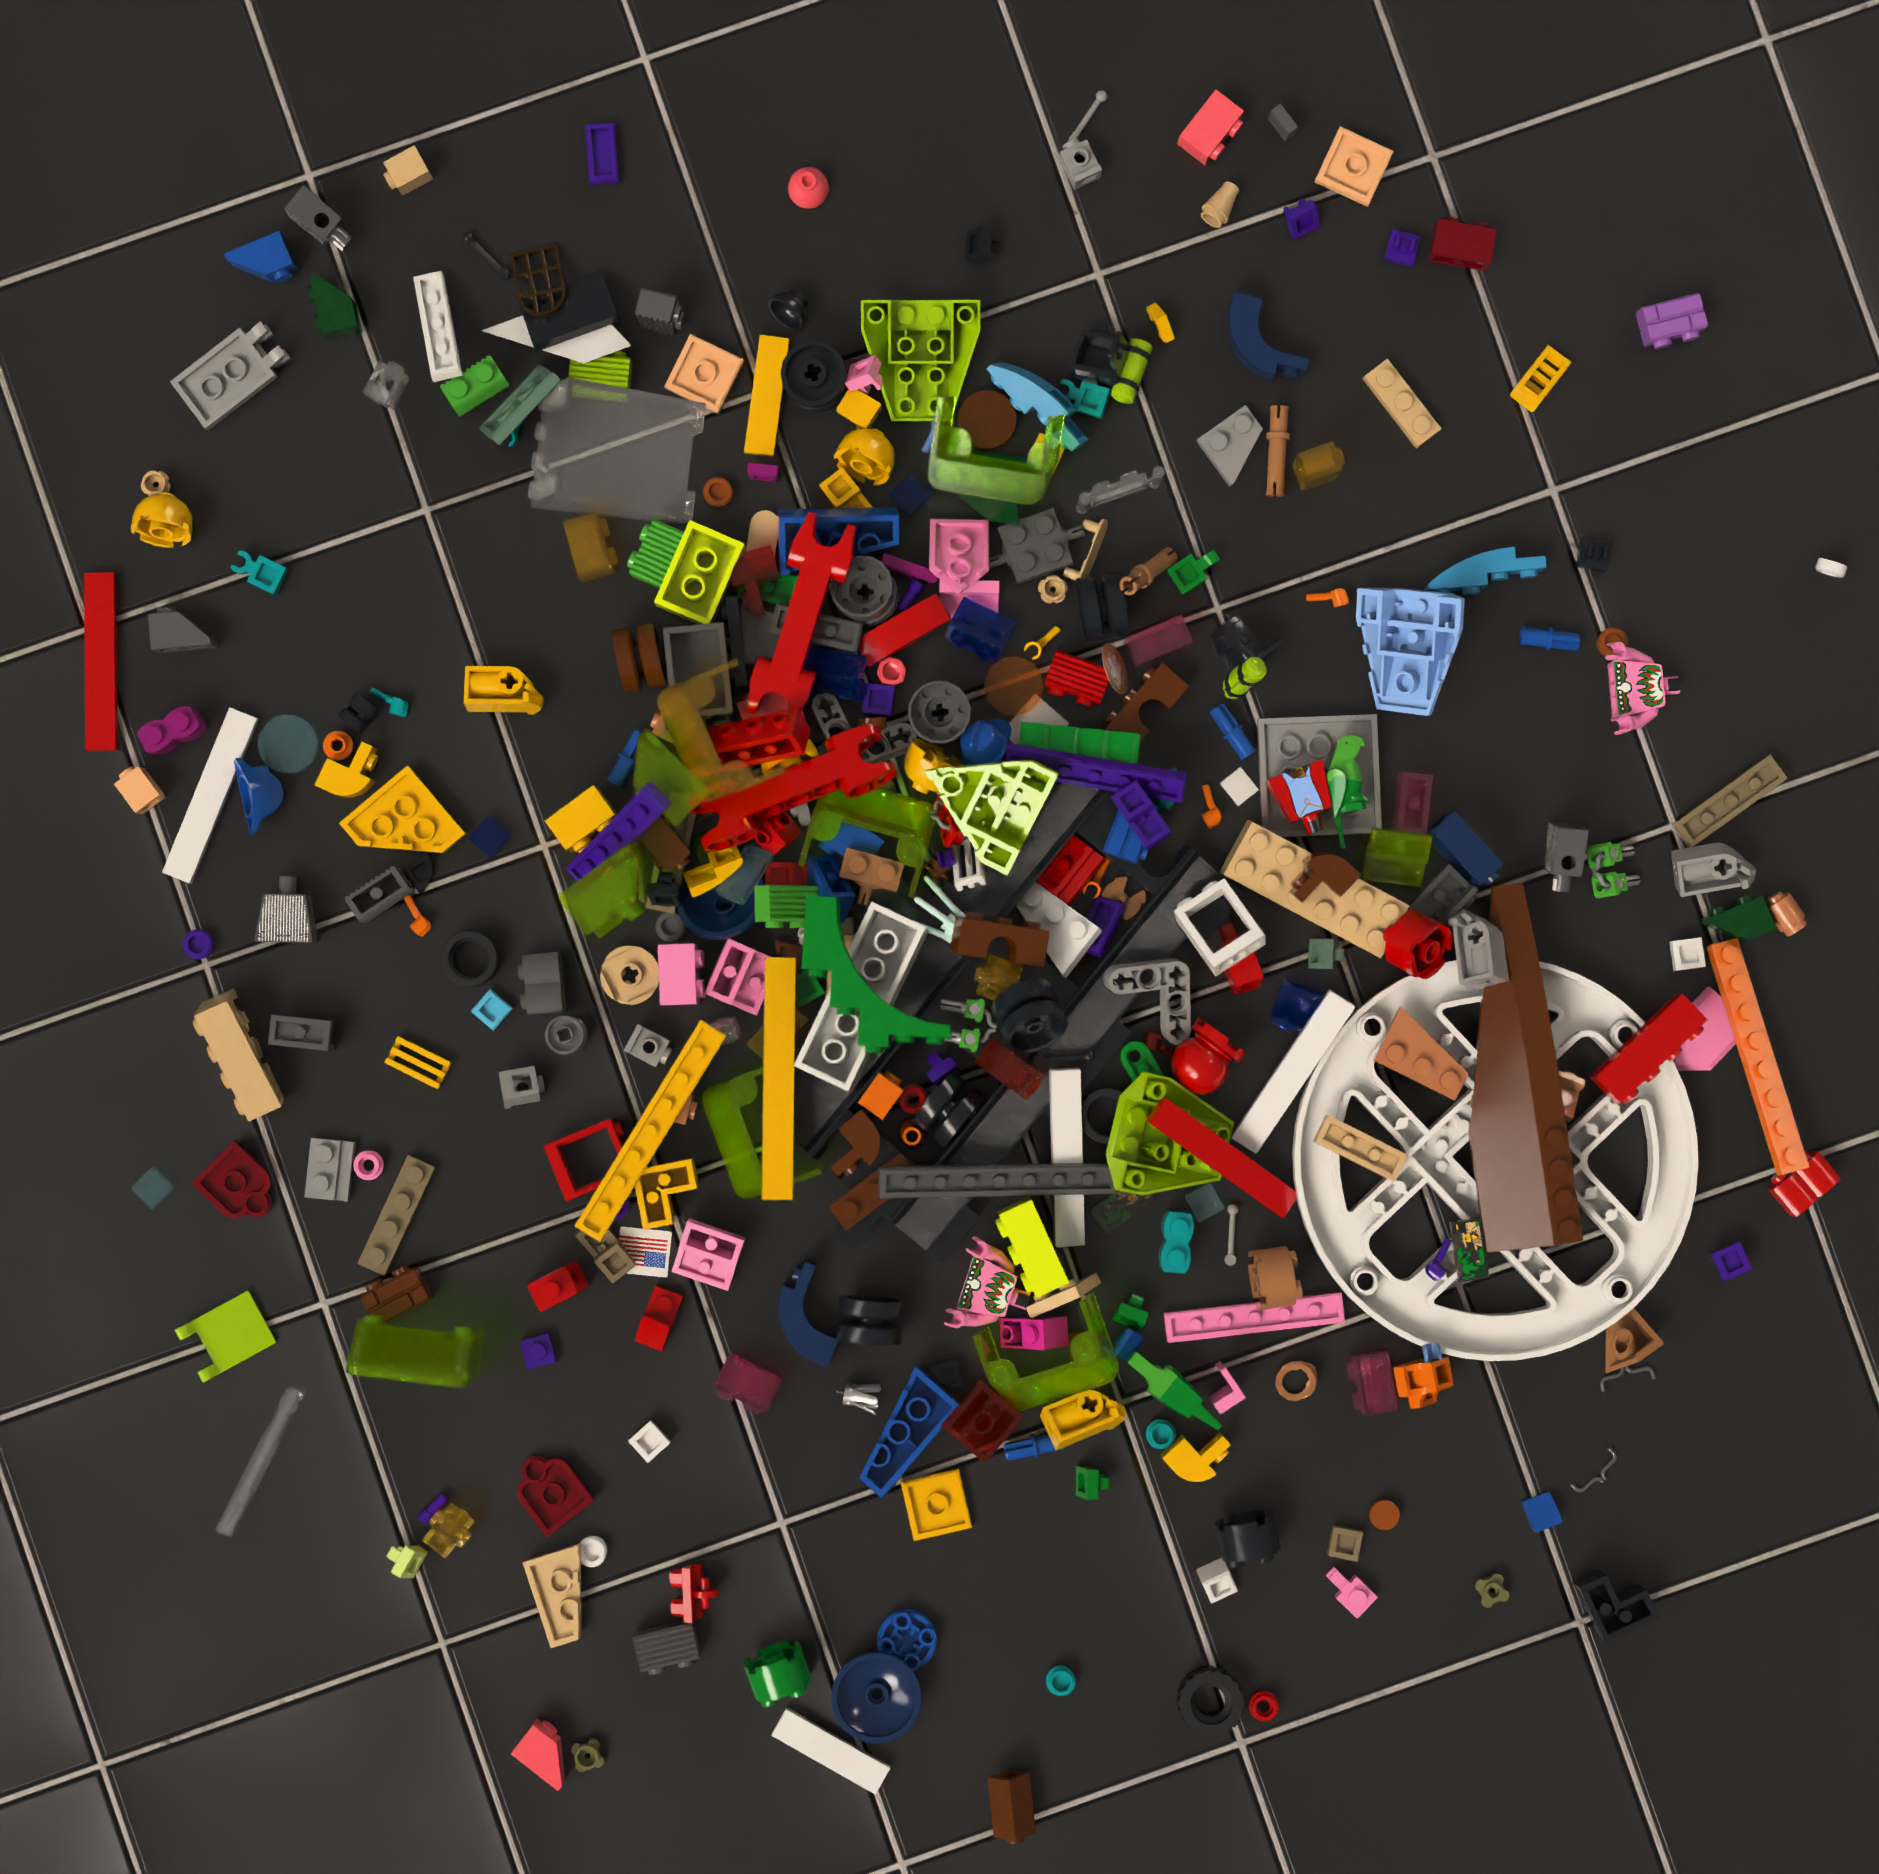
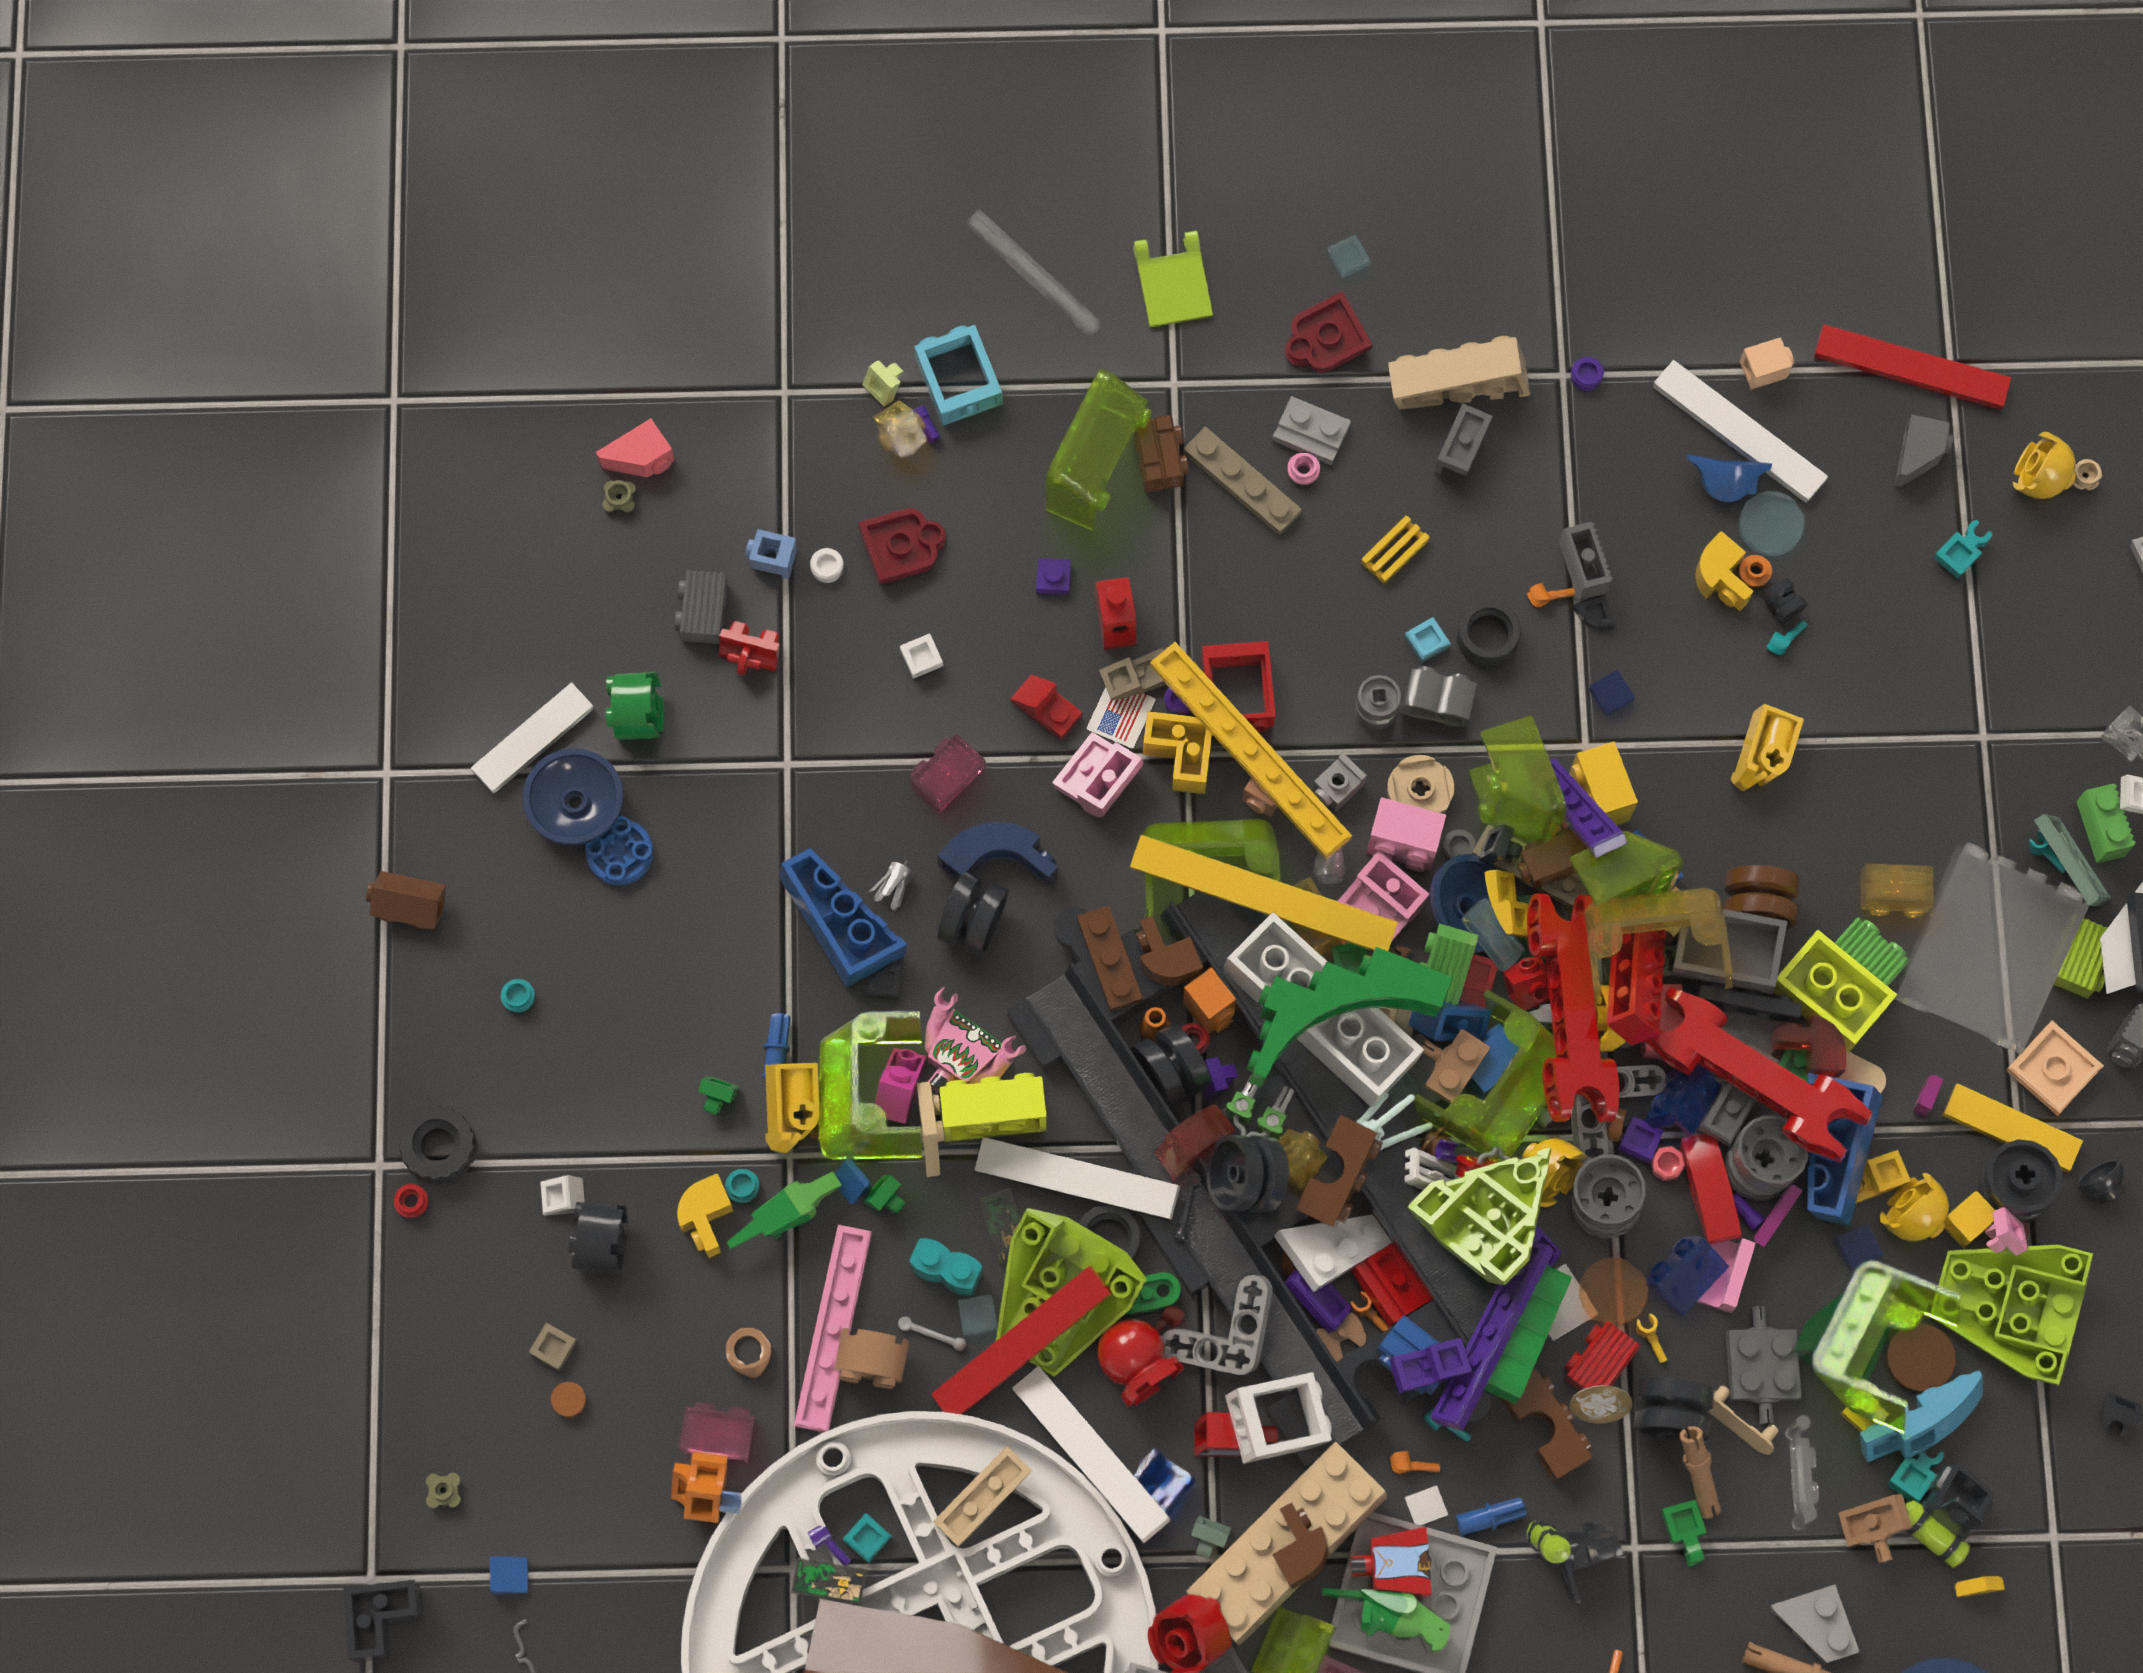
camera: 115 degrees right, 15 degrees down
(178, 726) = (1819, 412): magenta brick -> none
(286, 915) = (1590, 466): dark grey torso -> none
(400, 1475) = (968, 402): none -> medium azure window
(403, 818) = (1659, 612): yellow plate -> none
(513, 1079) = (1345, 634): light grey brick -> none
(557, 1592) = (807, 516): tan wing -> none
(591, 1613) = (768, 542): none -> medium blue brick
(718, 492) = (1918, 1043): dark orange tile -> none
(936, 1504) = (750, 927): yellow tile -> none
(959, 551) = (1781, 1275): bright pink tile -> none
(982, 1421) = (825, 994): clear red slope -> none
(985, 742) = (1564, 1232): blue piece -> none
(994, 1180) = (1079, 1086): dark grey tile -> none
(1052, 581) = (1712, 1360): tan plate -> none
(1141, 418) = (1875, 1524): none -> medium nougat plate
(1158, 641) = (1617, 1464): clear pink brick -> none
(1227, 1395) = (772, 1273): bright pink panel -> none
(1353, 1593) = (494, 1337): bright pink plate -> none
(1415, 1231) = (867, 1538): none -> teal tile
(1419, 1057) = (1062, 1595): nougat wing -> none

